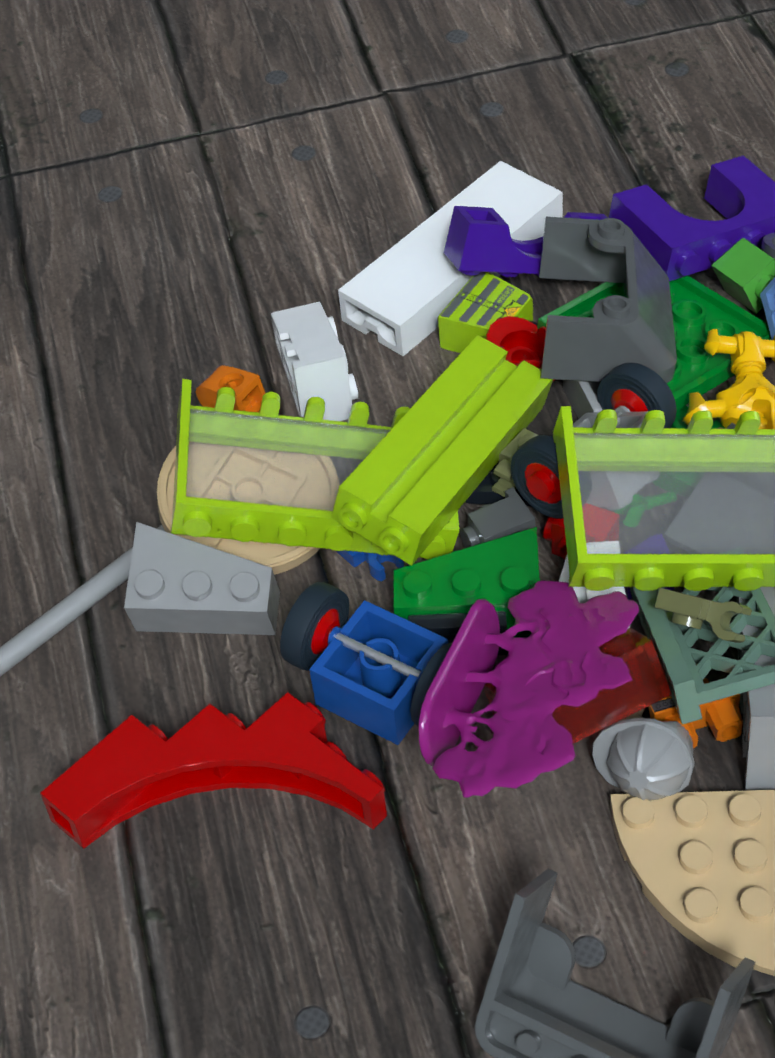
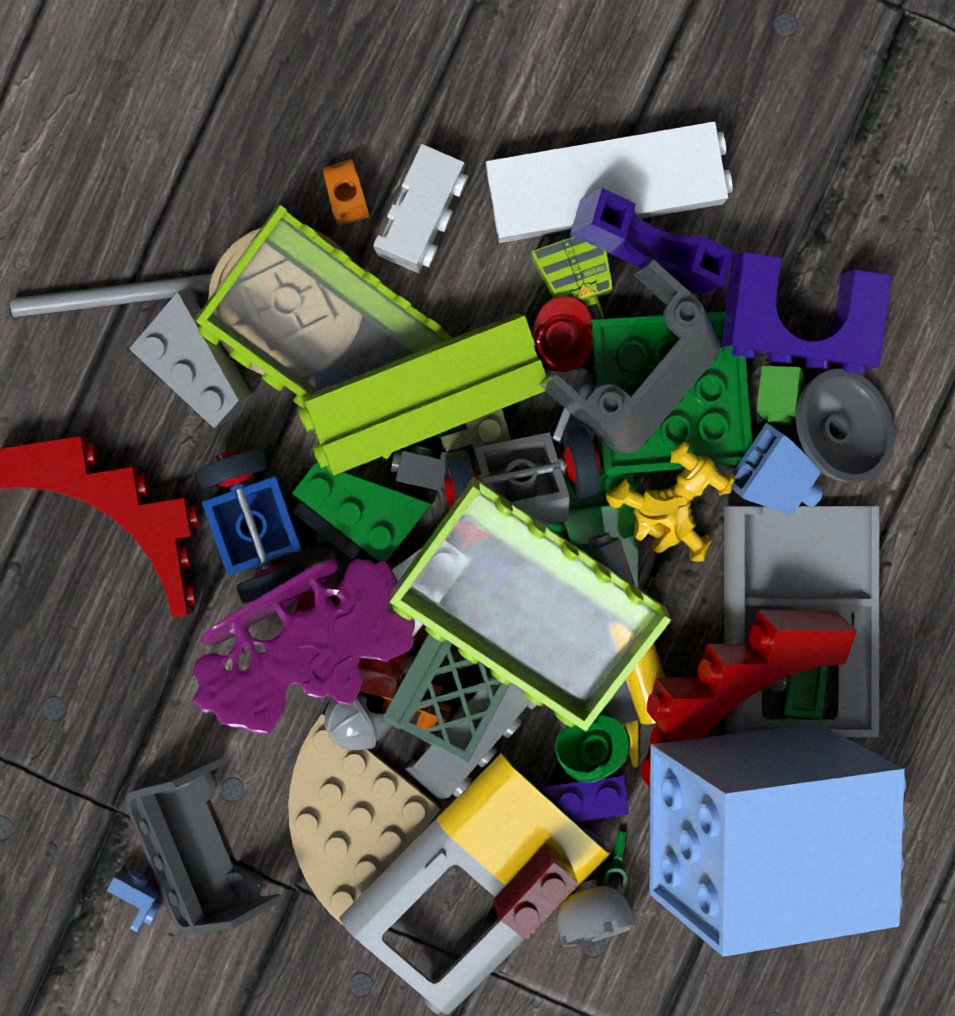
camera: 40 degrees right, 40 degrees up
(693, 610) = (456, 672): olive plate -> none

